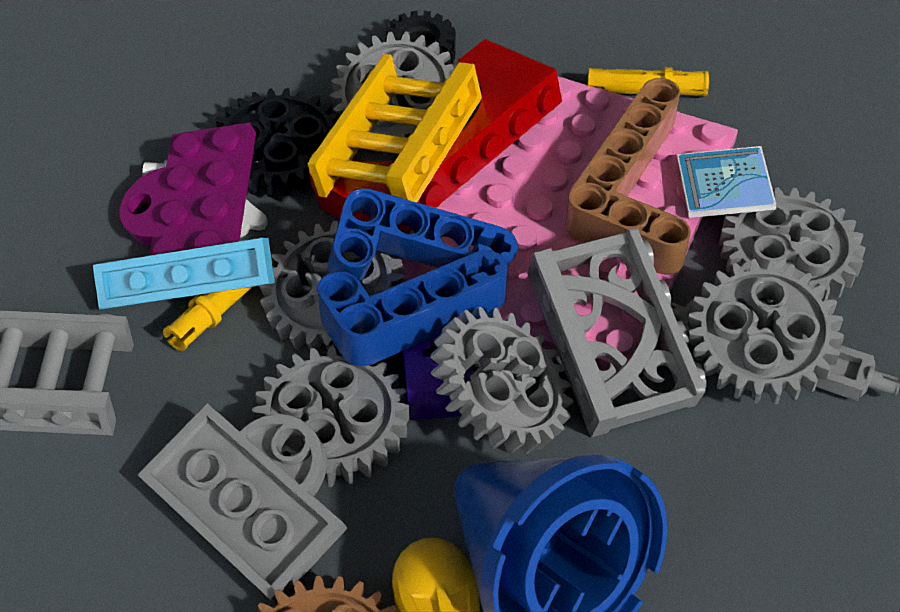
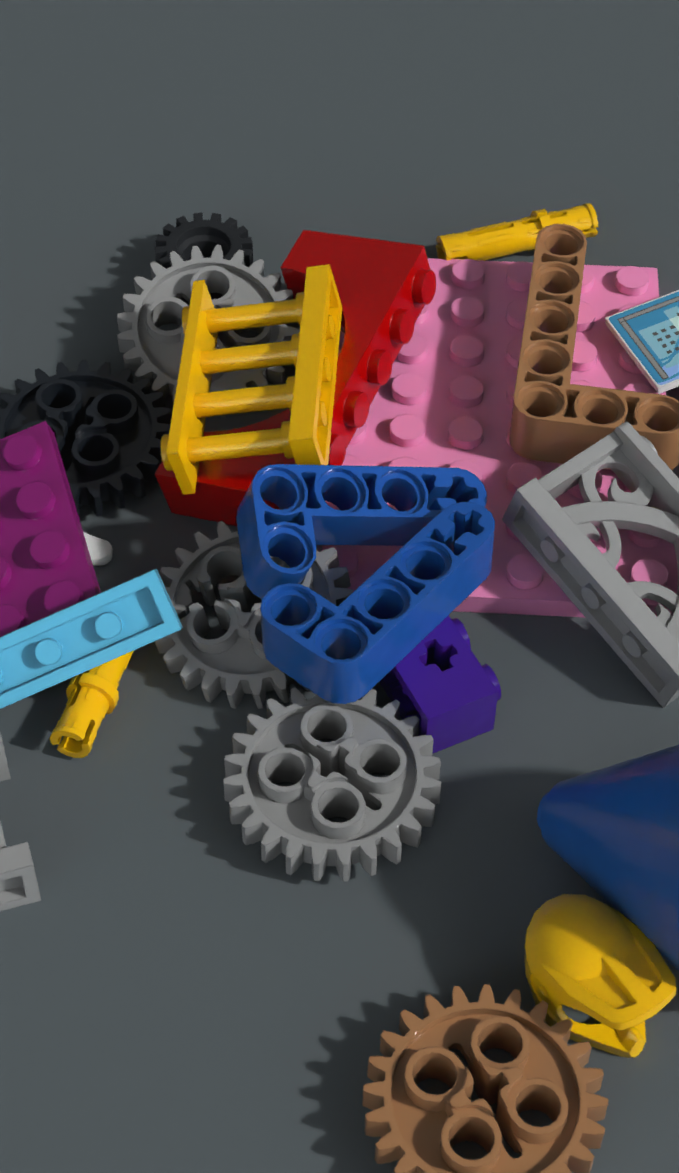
camera: 20 degrees left, 0 degrees up
(249, 495) = (280, 919): light grey plate -> none
(496, 394) = (539, 674): light grey gear -> none

